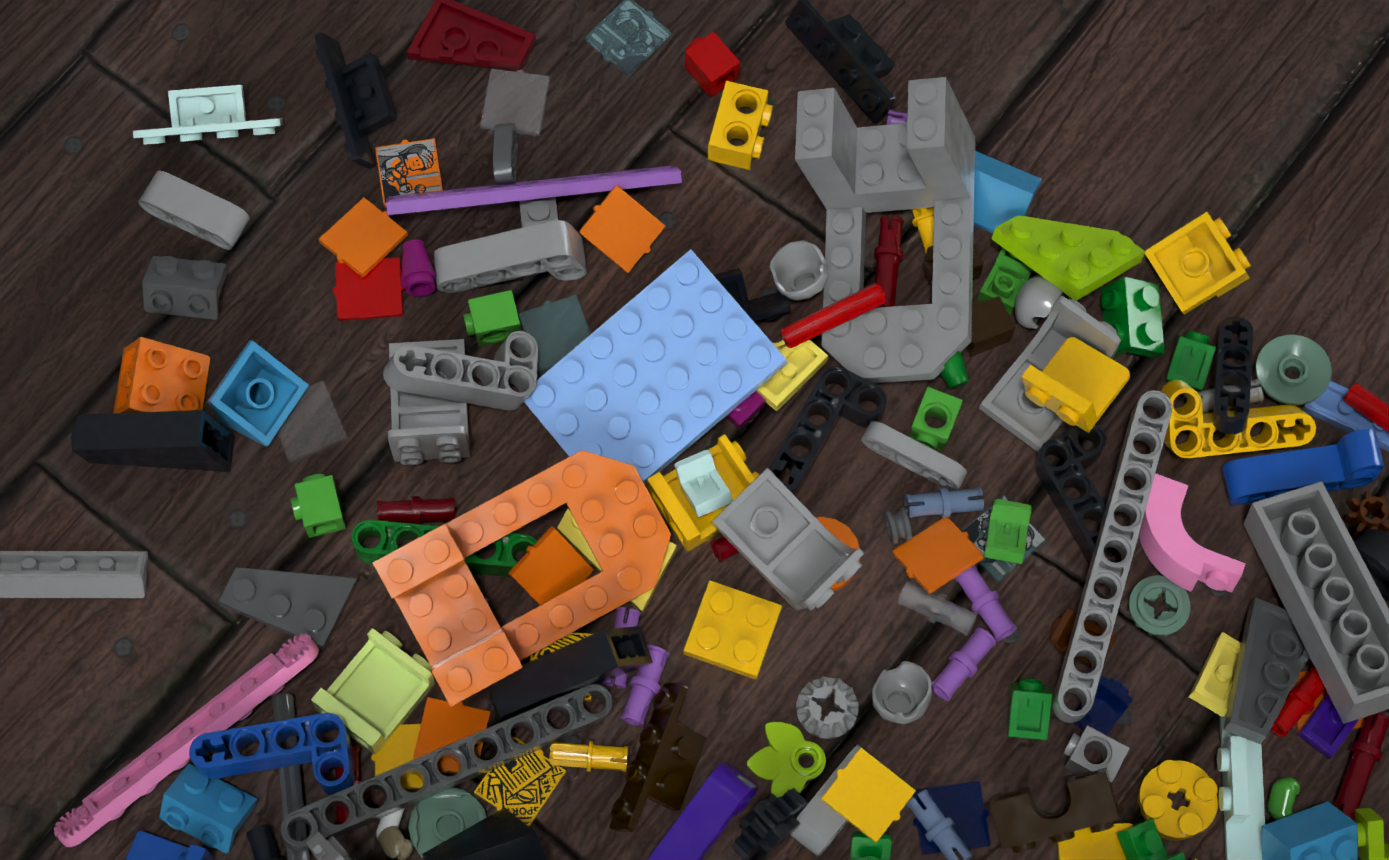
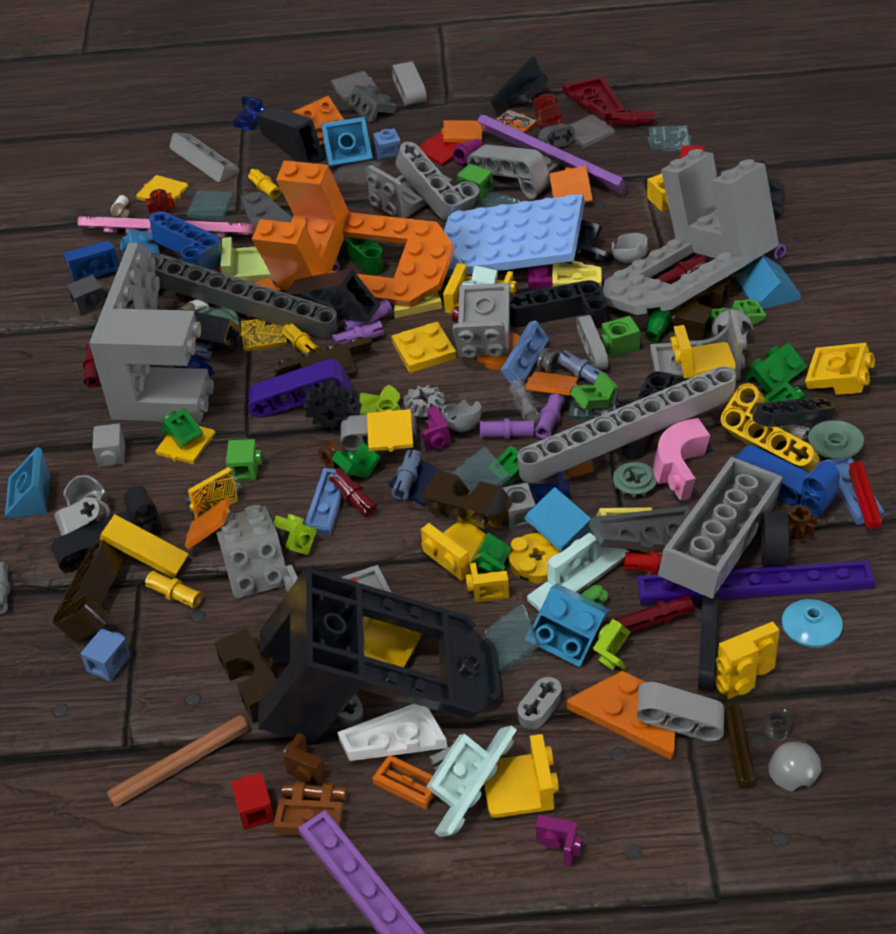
camera: 55 degrees right, 25 degrees down
(39, 448) = (246, 117): none -> clear blue bracket
(78, 767) = (118, 208): none -> dark tan arm
(88, 680) = (171, 186): none -> yellow piece
(109, 269) = (345, 85): none -> clear piece
(137, 701) = (160, 201): none -> clear red gear
(185, 646) = (209, 205): none -> clear light blue piece
(207, 111) = (456, 59): light aqua bracket -> none
(219, 551) = (264, 184): none -> yellow axle
(310, 348) = (386, 143): none -> medium blue bracket
(453, 122) = (547, 110): none -> clear red gear
(550, 567) = (375, 261): orange piece -> none
(553, 40) = (631, 118): none -> dark red pin
(833, 315) = (621, 264): red axle -> none
(864, 535) = (525, 353): none -> medium blue tile
(894, 733) = (437, 430): none -> magenta bracket
(1010, 754) = (481, 468): none -> clear light blue piece
(1068, 254) = (769, 317): lime plate -> none
(1171, 741) = (559, 520): none -> dark azure slope

